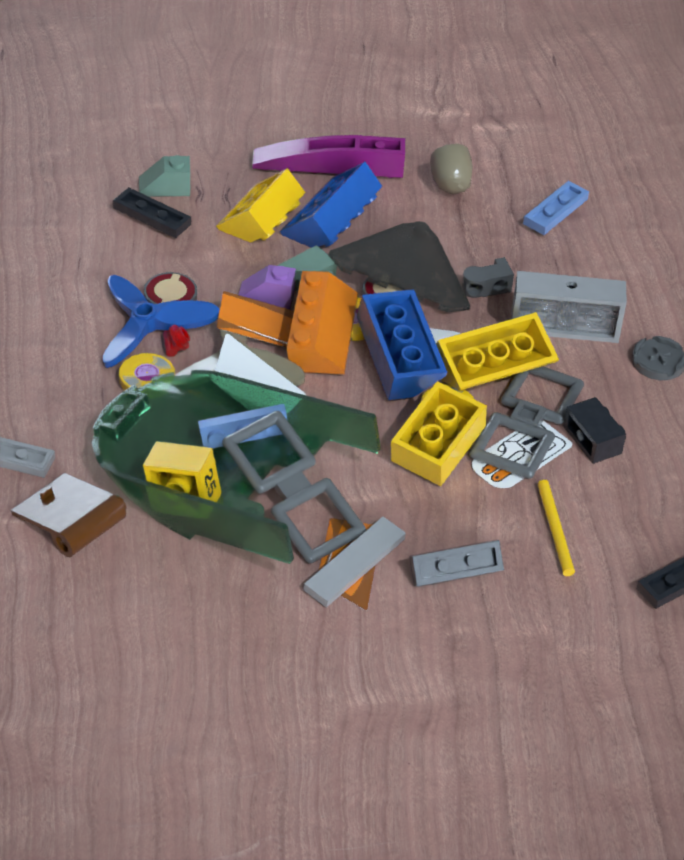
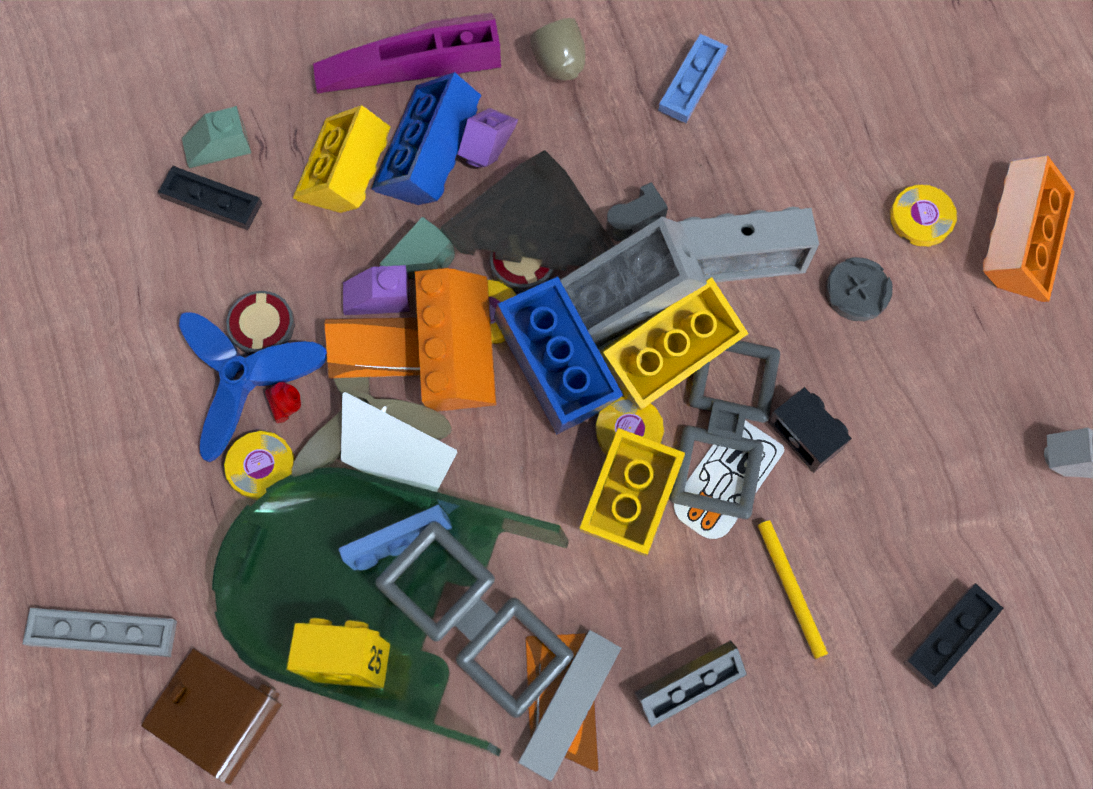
camera: 10 degrees left, 25 degrees up
(378, 212) = (486, 137): none -> medium lavender slope
(475, 297) = (634, 280): none -> brick

